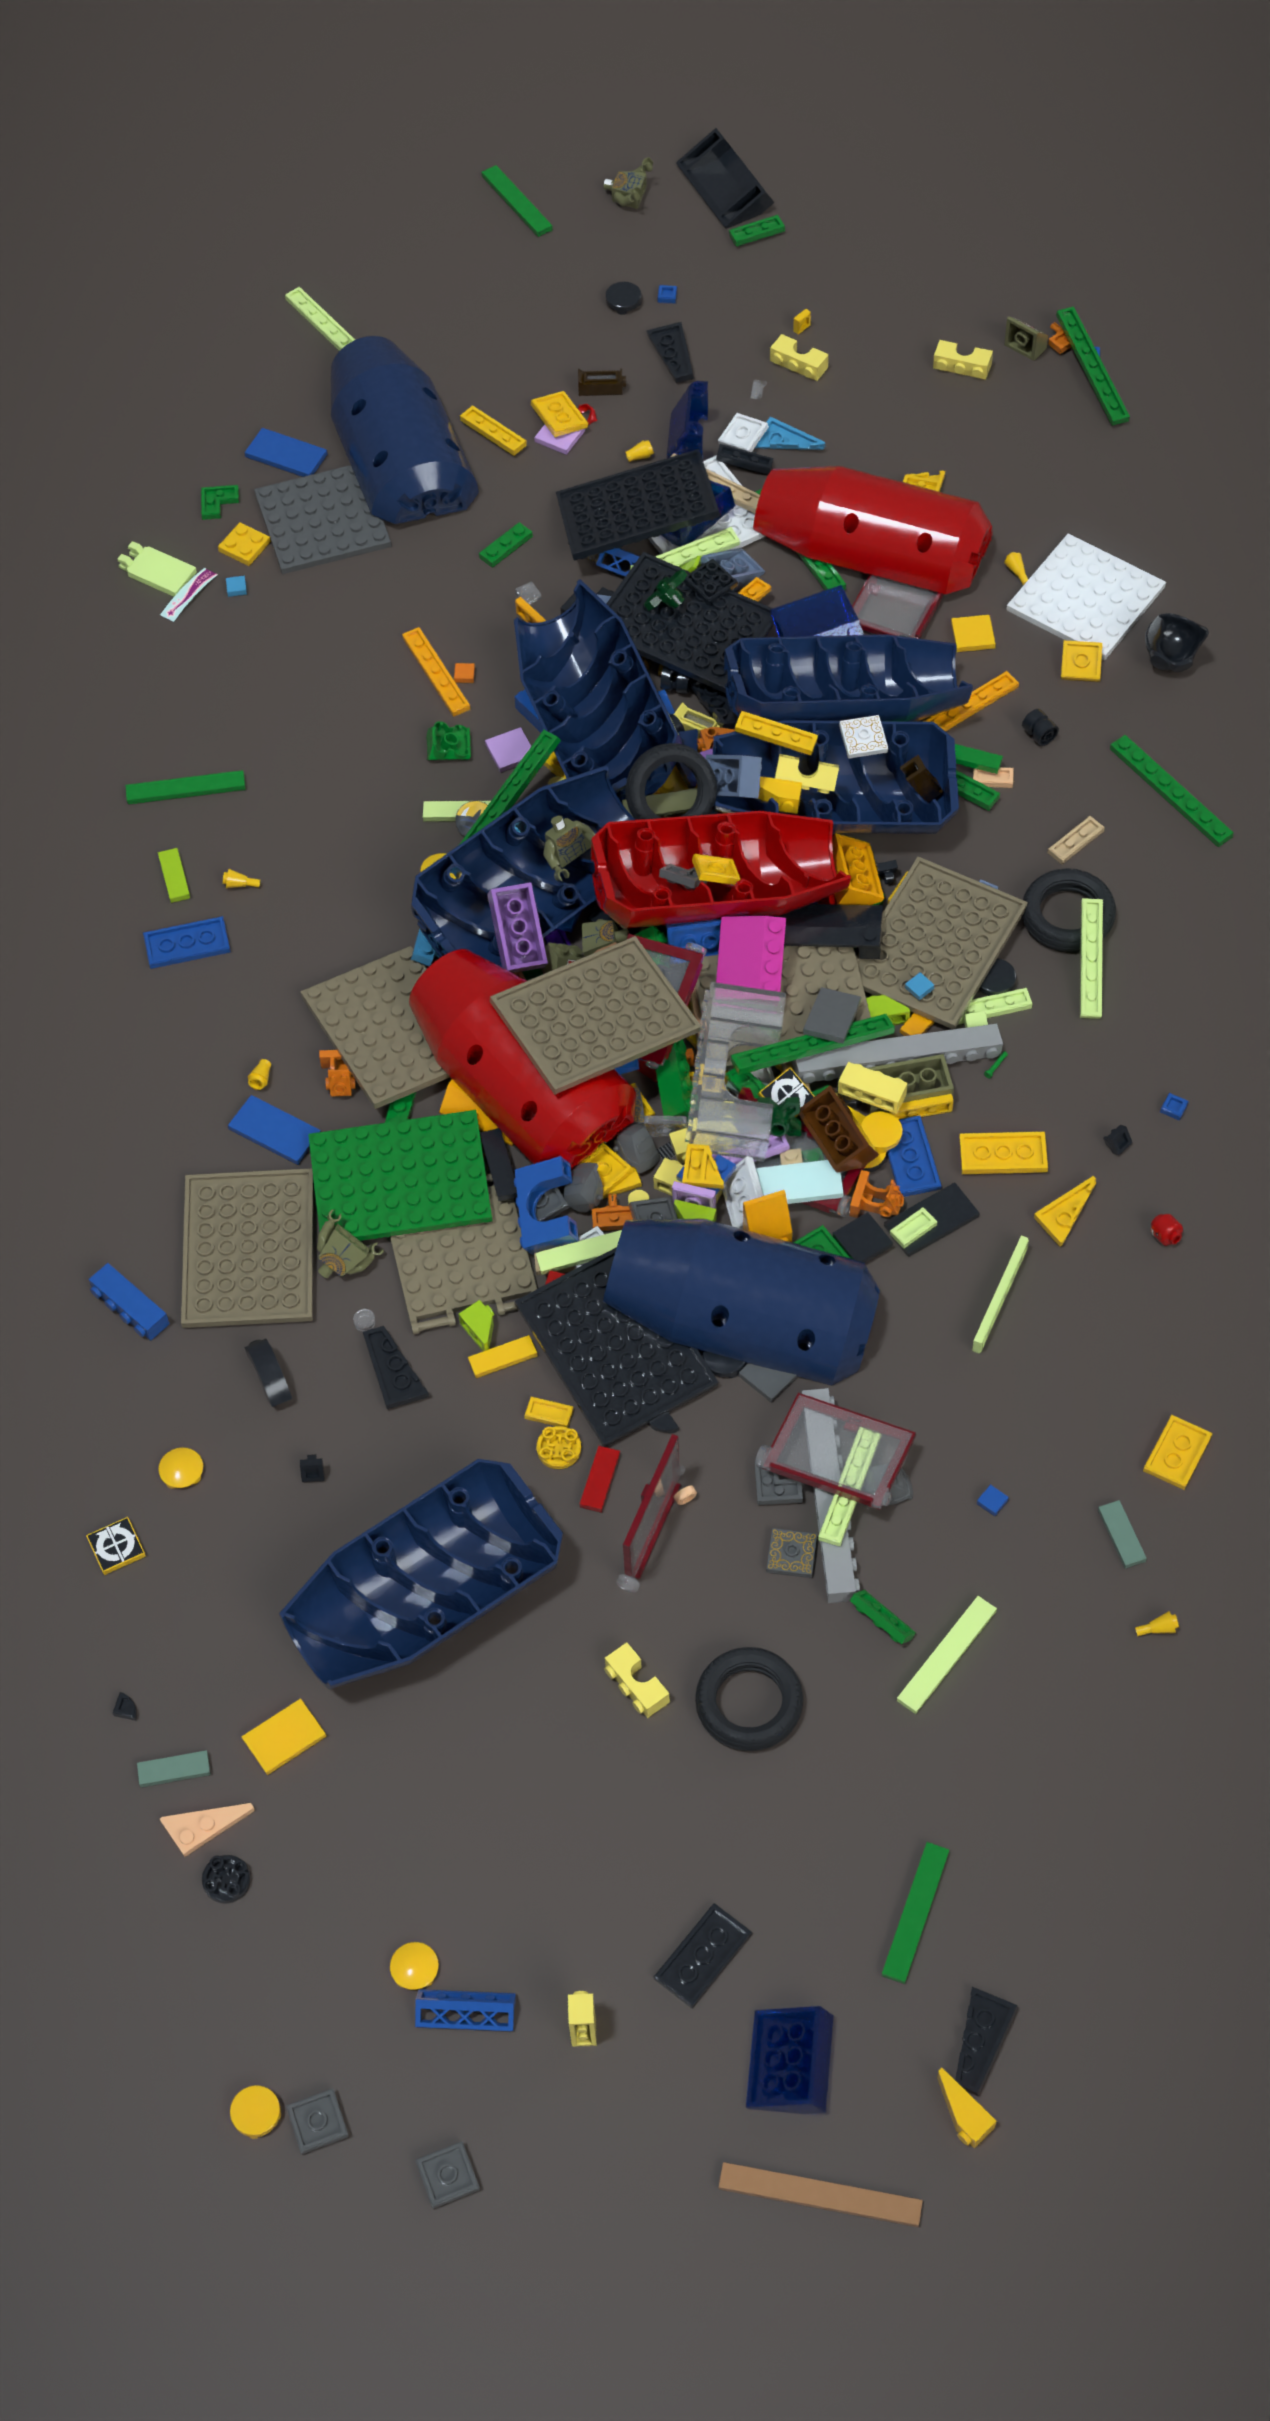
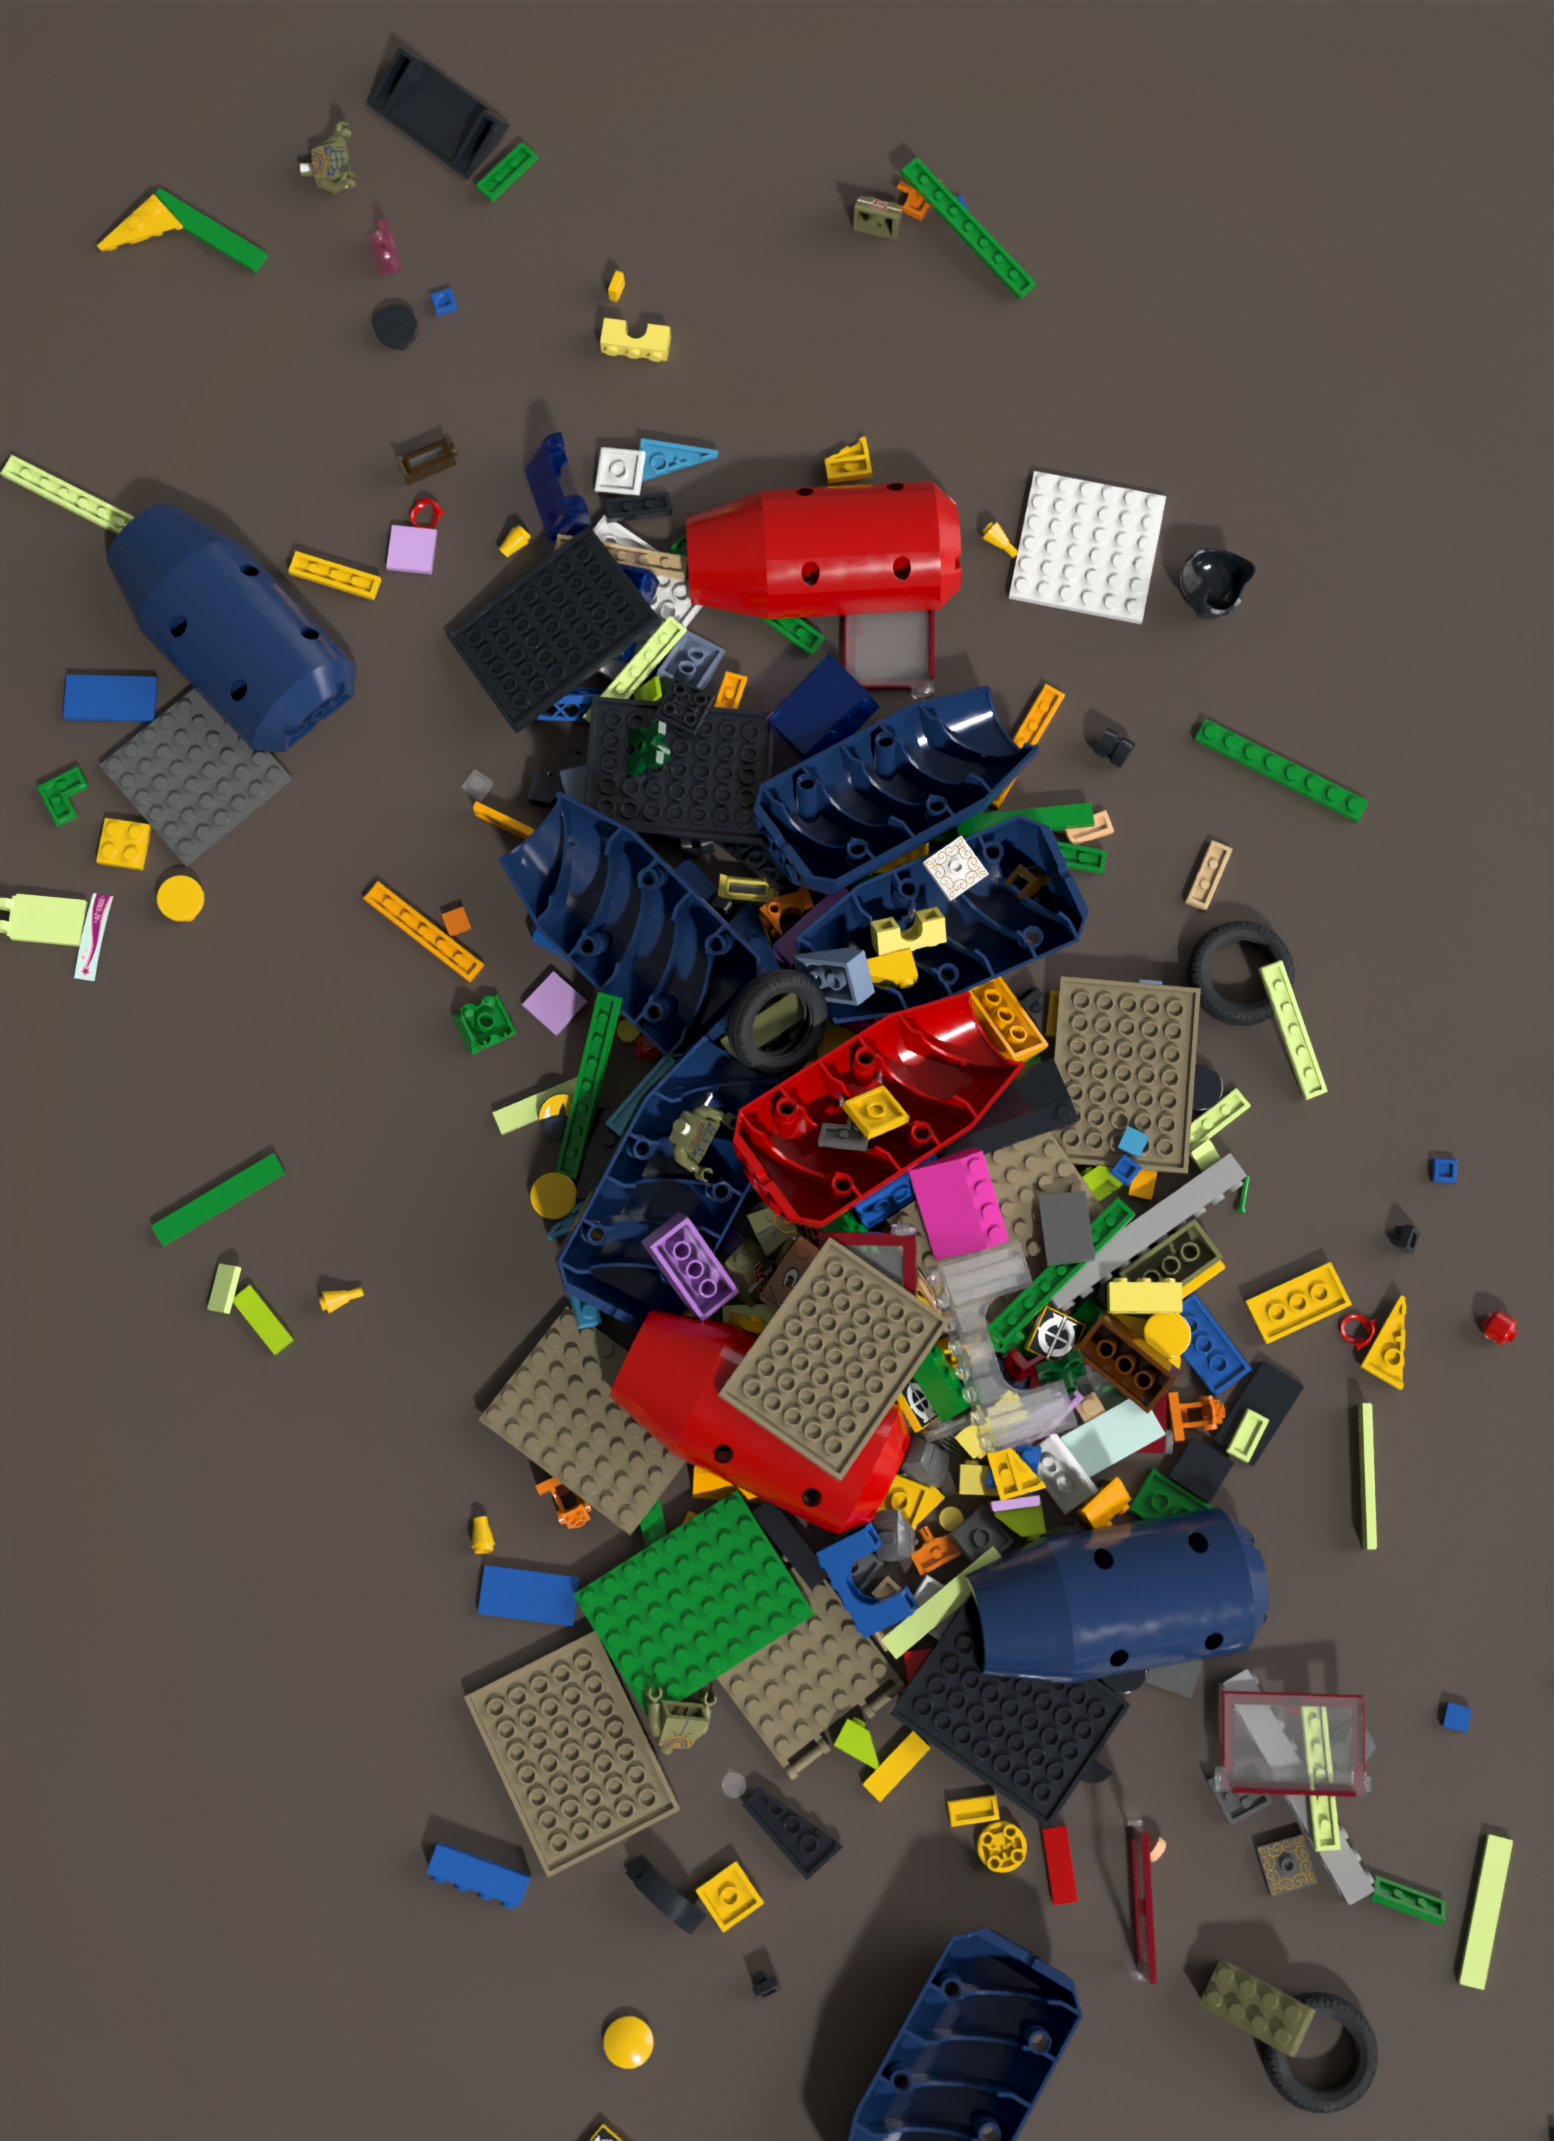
camera: 25 degrees left, 20 degrees up
(157, 843) = (224, 1288): none -> yellowish green tile
(186, 942) = (318, 1400): blue tile -> none
(236, 586) = (143, 906): dark azure tile -> none
(266, 589) = (180, 898): none -> yellow tile
(318, 1394) = (729, 1896): none -> yellow plate
(468, 182) = (146, 221): none -> yellow wing
(505, 544) = (421, 728): green plate -> none
(559, 413) = (400, 524): yellow tile -> none
(641, 247) = (385, 249): none -> clear pink bracket
(646, 1696) = (1219, 2093): light yellow arch -> none
(647, 1098) = (916, 1406): none -> tile
(673, 350) = (485, 379): black wing -> none
(710, 1633) = (1257, 2007): none -> olive brick
(757, 389) = (609, 401): clear tile -> none
(776, 733) = (862, 907): yellow plate -> none
(903, 1003) = (1125, 1170): none -> blue tile
(973, 365) = (803, 278): light yellow arch -> none
(973, 633) = (987, 646): yellow tile -> none
(1045, 1201) = (1369, 1325): none -> red piece
(1081, 661) = (1120, 639): yellow tile -> none

